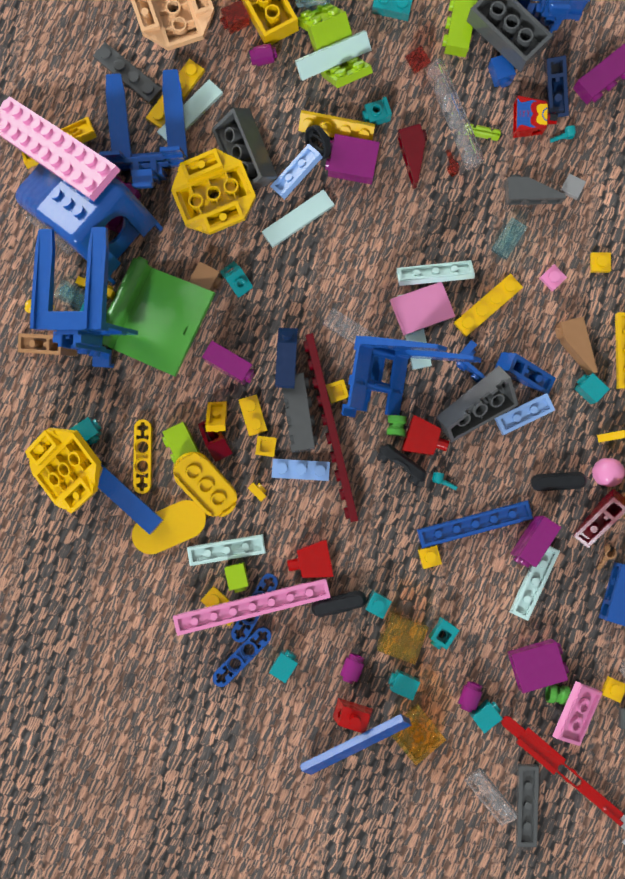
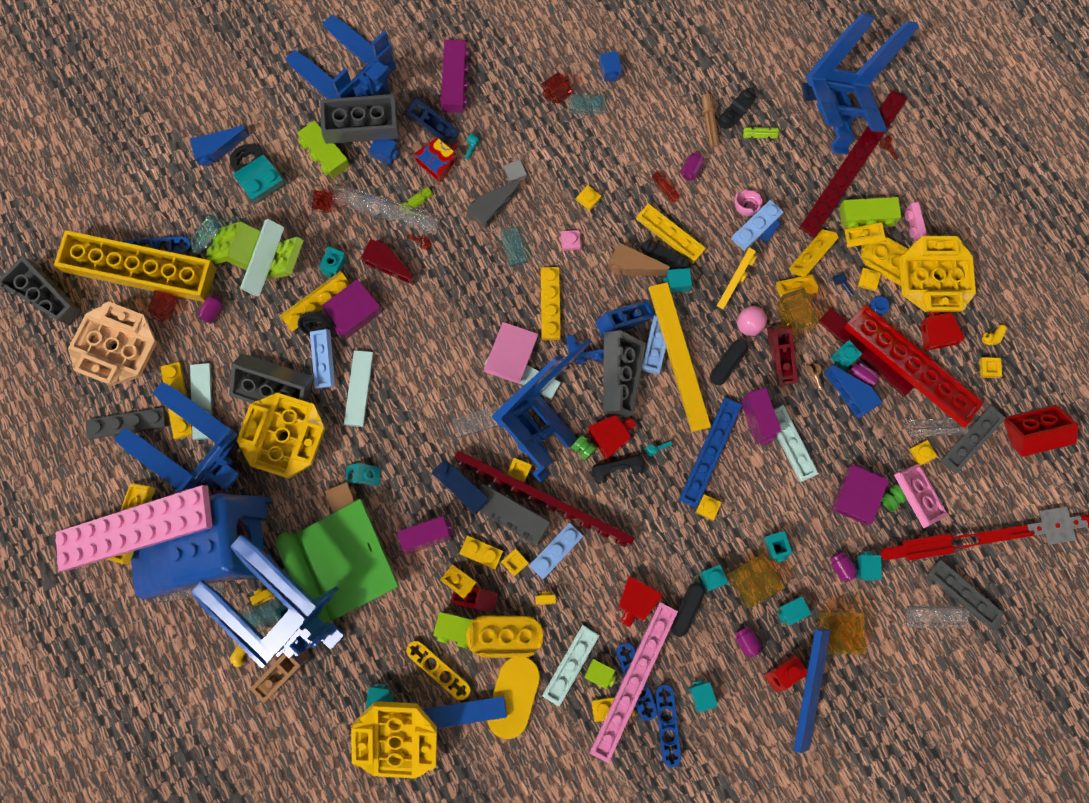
camera: 50 degrees left, 10 degrees down
(435, 273) = (492, 321): light aqua tile -> none
(530, 439) = (679, 357): none -> yellow tile
(604, 361) = (665, 255): none -> black piece

